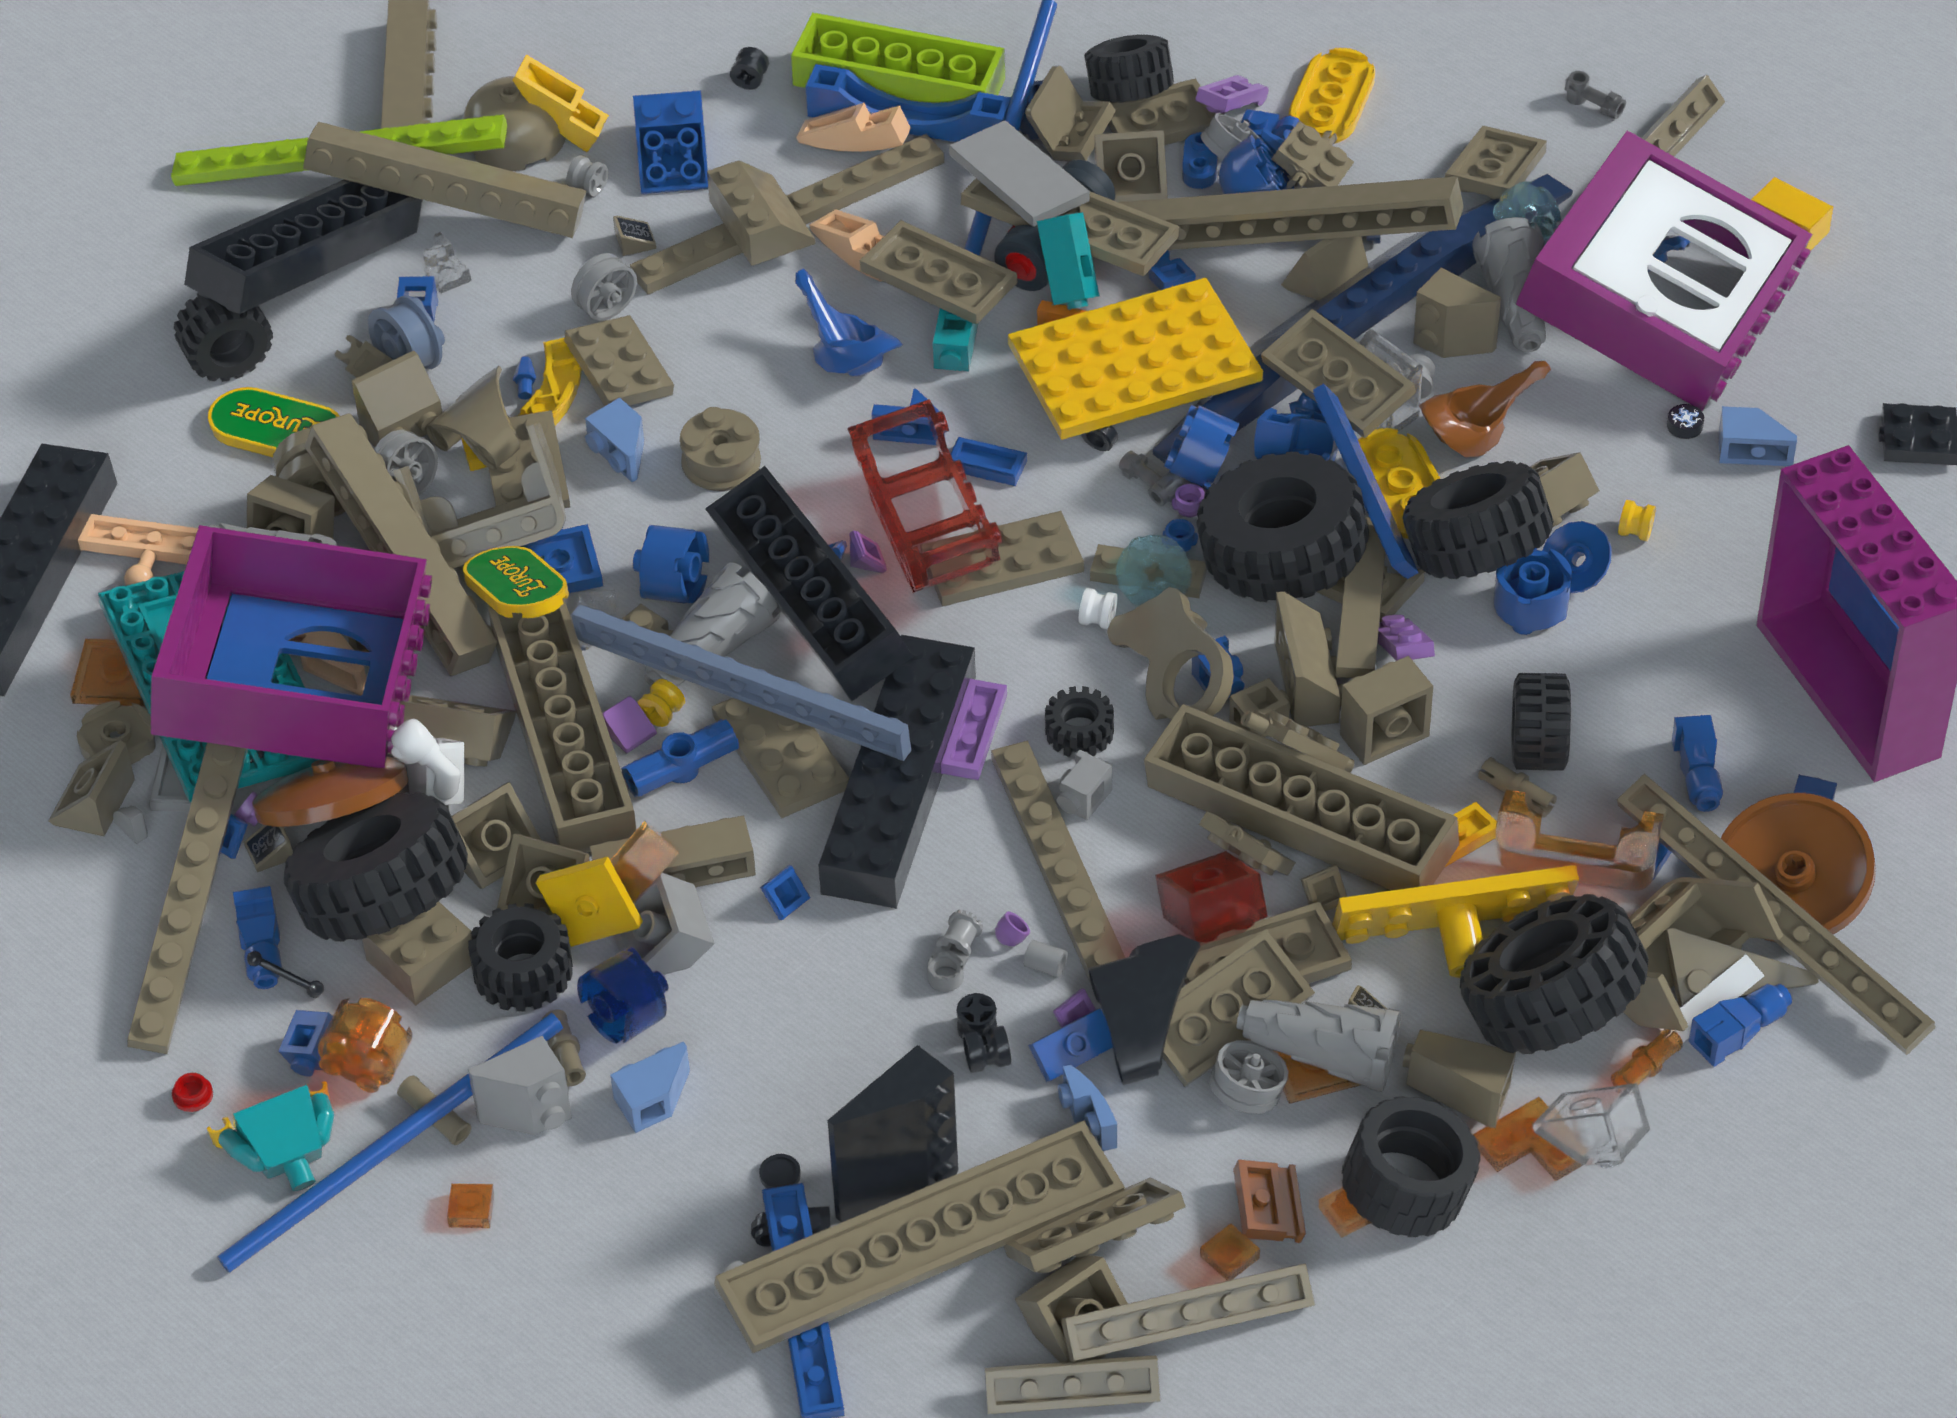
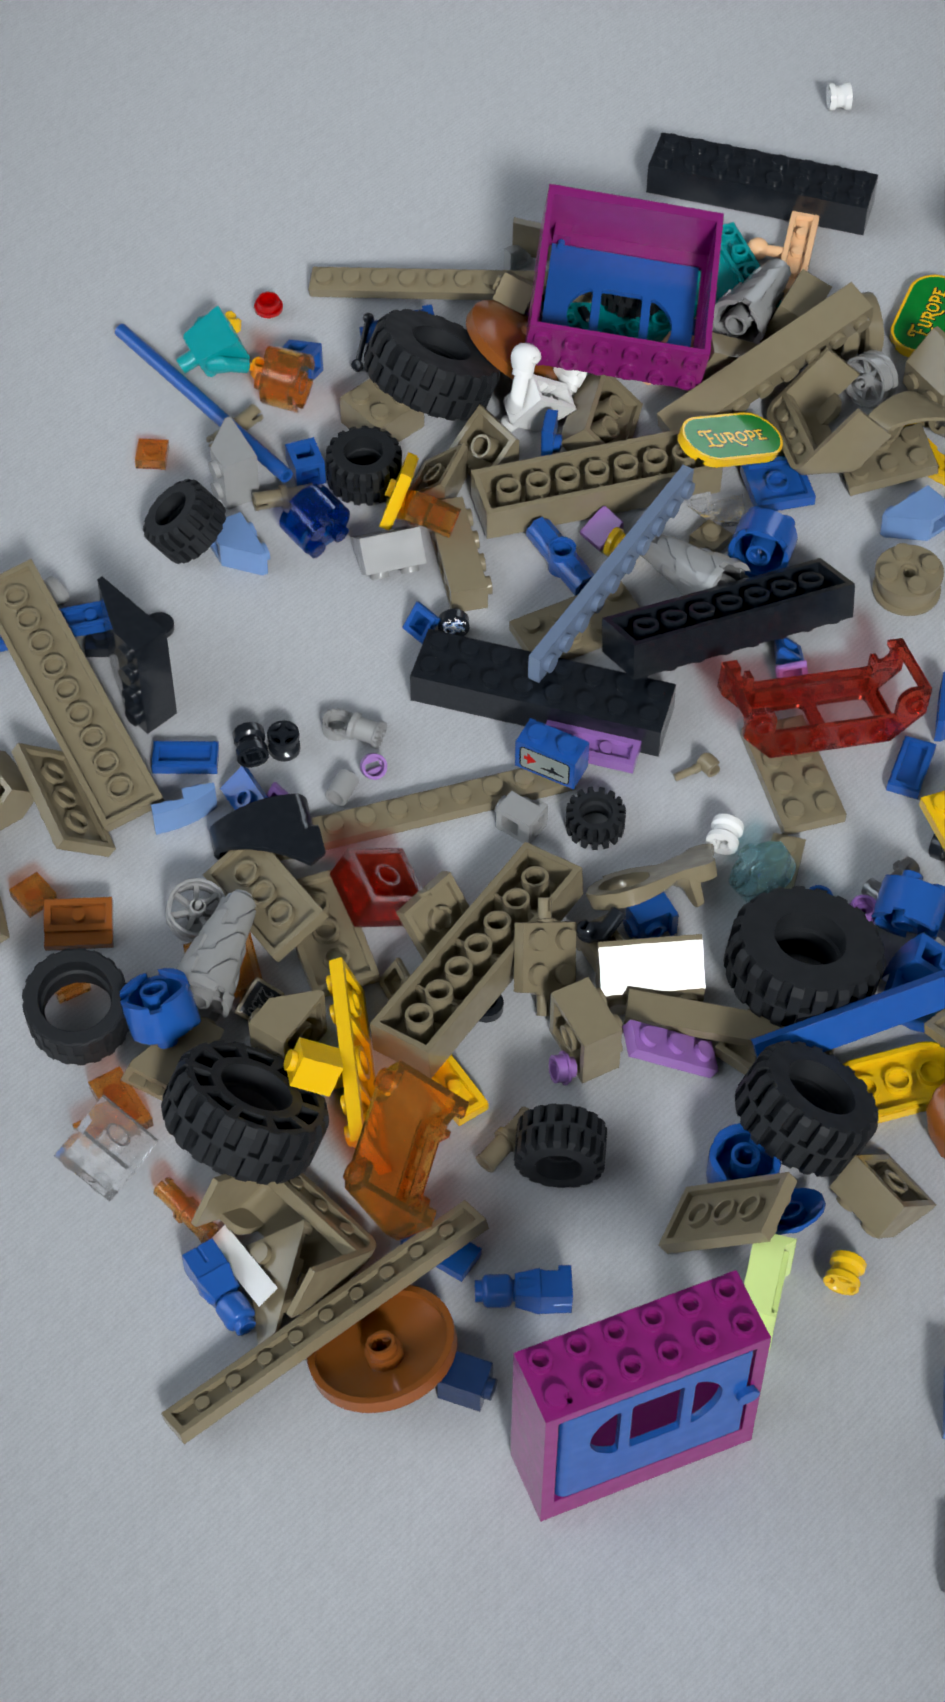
camera: 90 degrees right, 5 degrees up
(246, 784) = (513, 291): none -> dark tan brick
(496, 760) = (550, 440): none -> blue plate
(502, 1021) = (305, 462): none -> blue brick
(596, 1127) = (184, 521): none -> black tyre
(786, 855) = (454, 622): none -> black tile
(992, 631) = (706, 762): none -> dark tan hand
(999, 1120) = (185, 757): none -> blue tile
(1010, 742) = (551, 753): none -> blue brick
(1260, 693) = (600, 930): none -> black arm
(1420, 968) = (287, 1018): none -> dark tan slope
(1424, 741) = (562, 1068): none -> medium lavender plate
(1428, 1058) = (159, 1007): none -> blue brick
(1488, 914) = (313, 1066): none -> yellow brick
(1610, 582) = (728, 1213): none -> dark tan plate
(1681, 571) = (766, 1274): none -> yellowish green window

